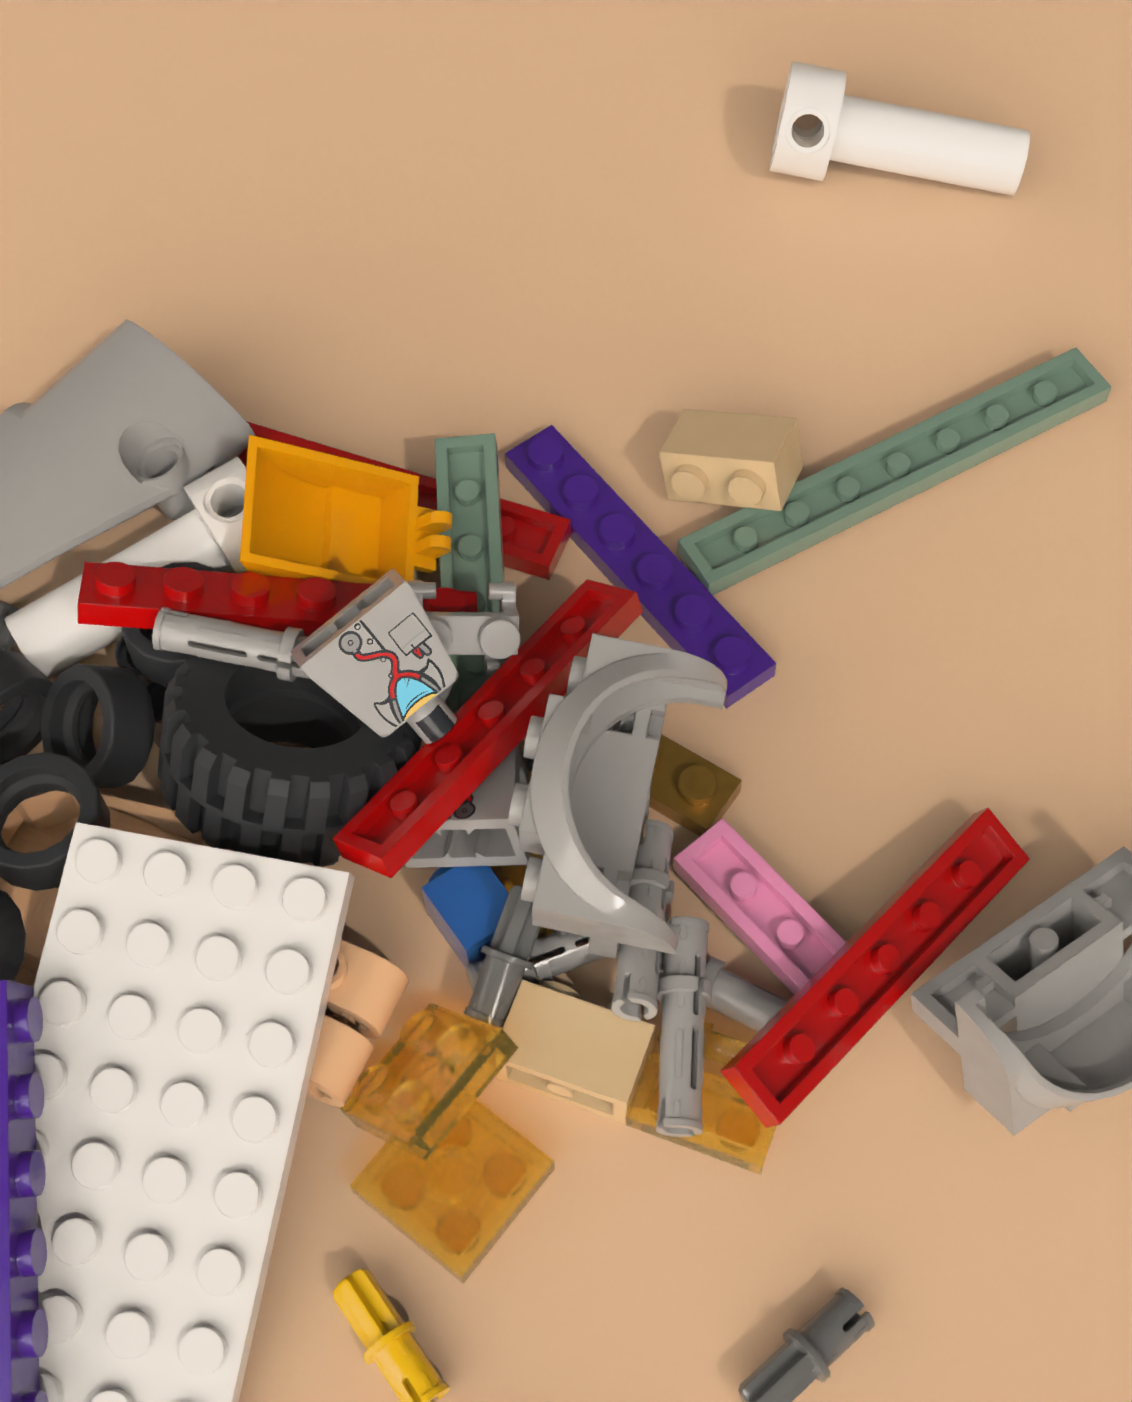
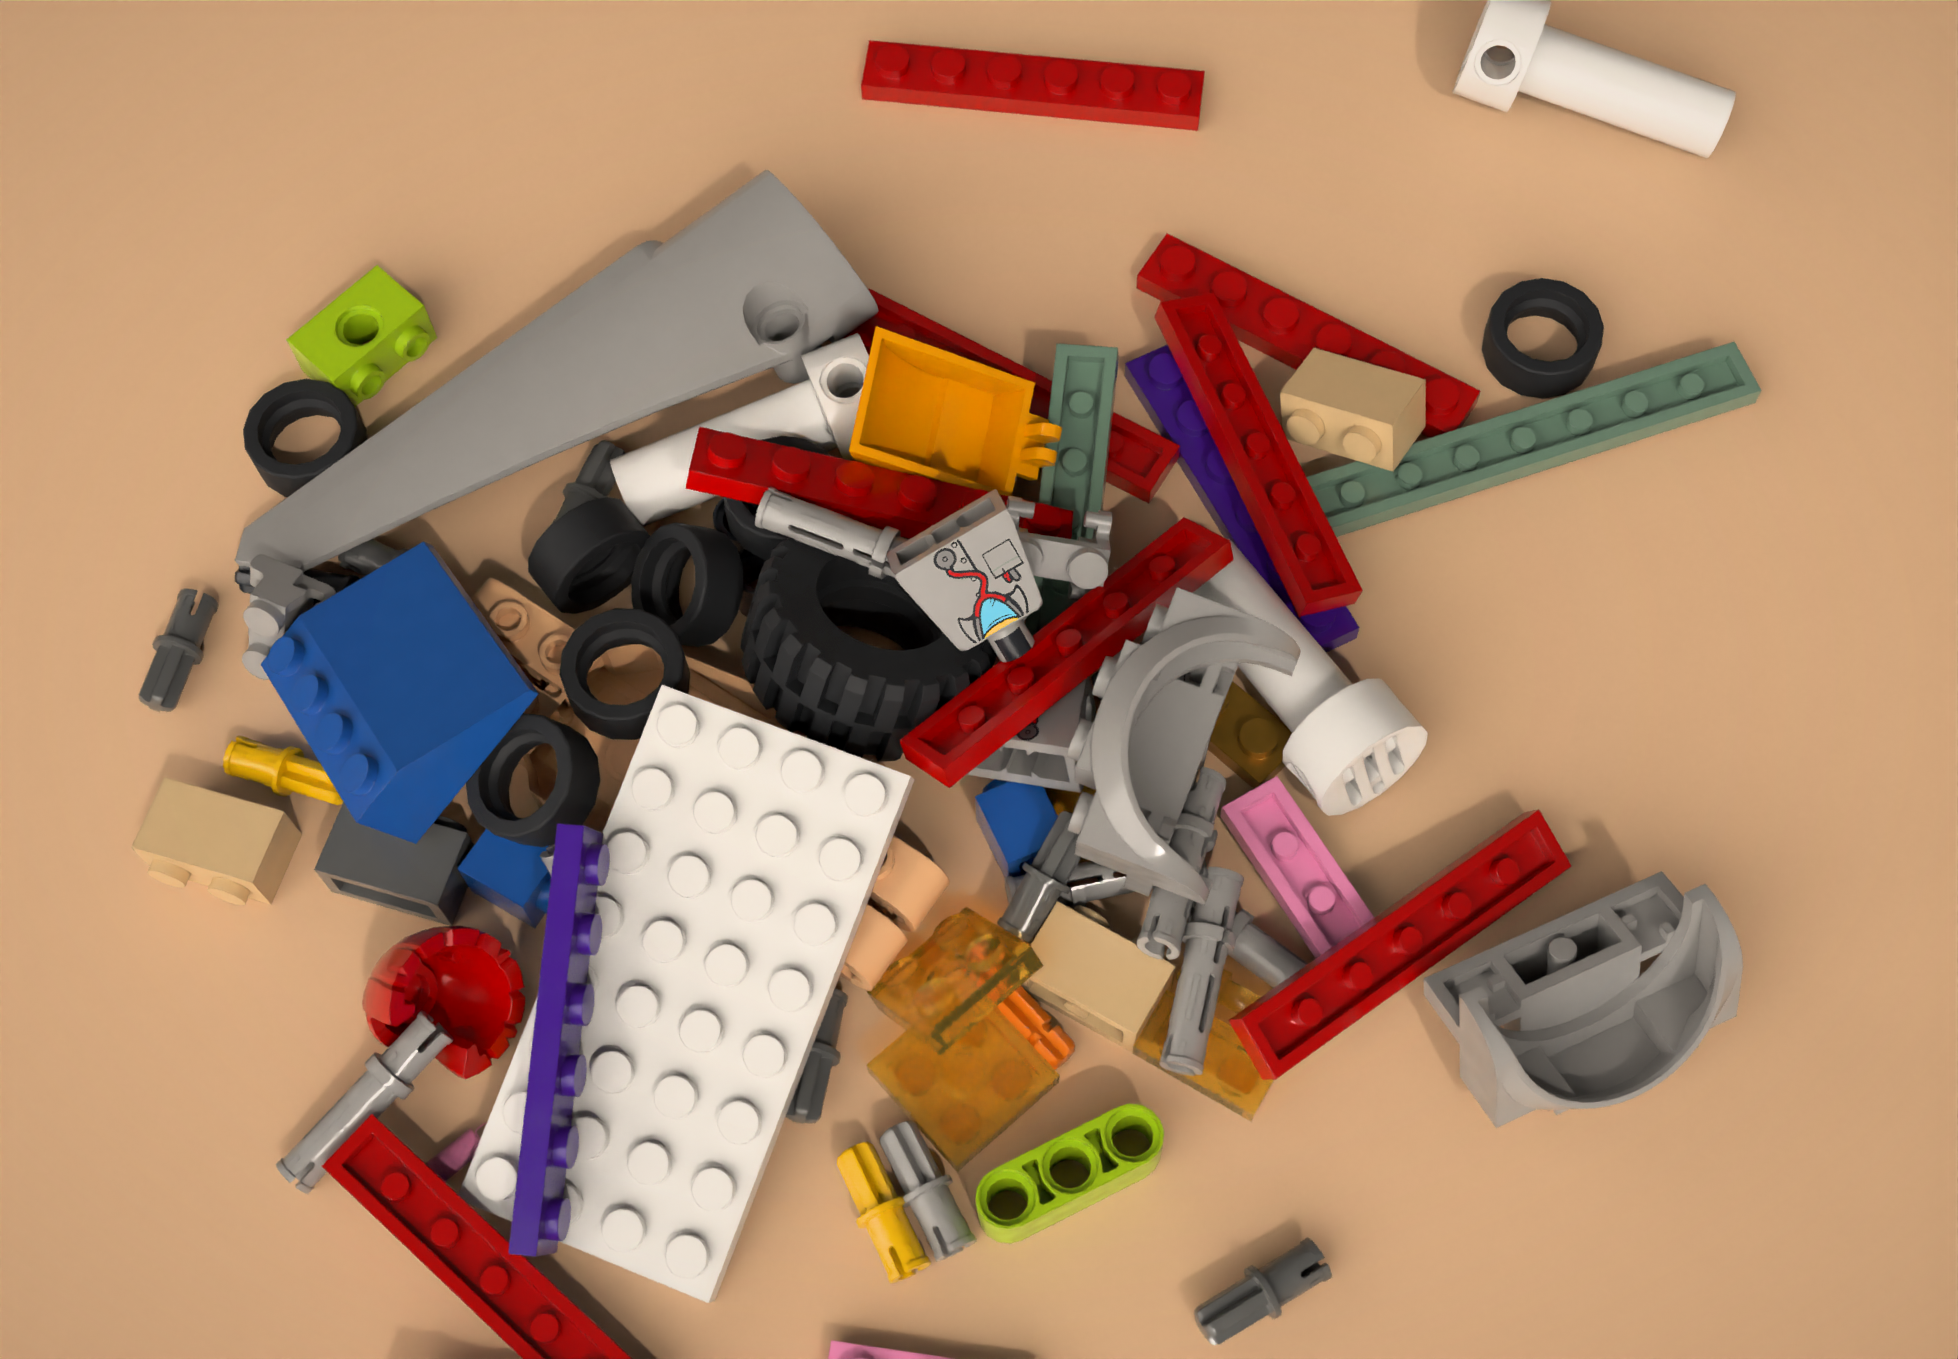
camera: 10 degrees right, 5 degrees up
(295, 1219) = (813, 1083): none -> dark grey axle
(375, 221) = (1033, 85): none -> red plate
(433, 1310) = (926, 1190): none -> light grey axle
(521, 1114) = (1036, 1027): none -> orange axle
(594, 1229) = (1087, 1144): none -> lime beam
(647, 396) = (1291, 328): none -> red plate
(649, 516) = (1258, 455): none -> red plate
(783, 766) = (1345, 736): none -> white piece
(903, 338) = (1549, 300): none -> black tyre

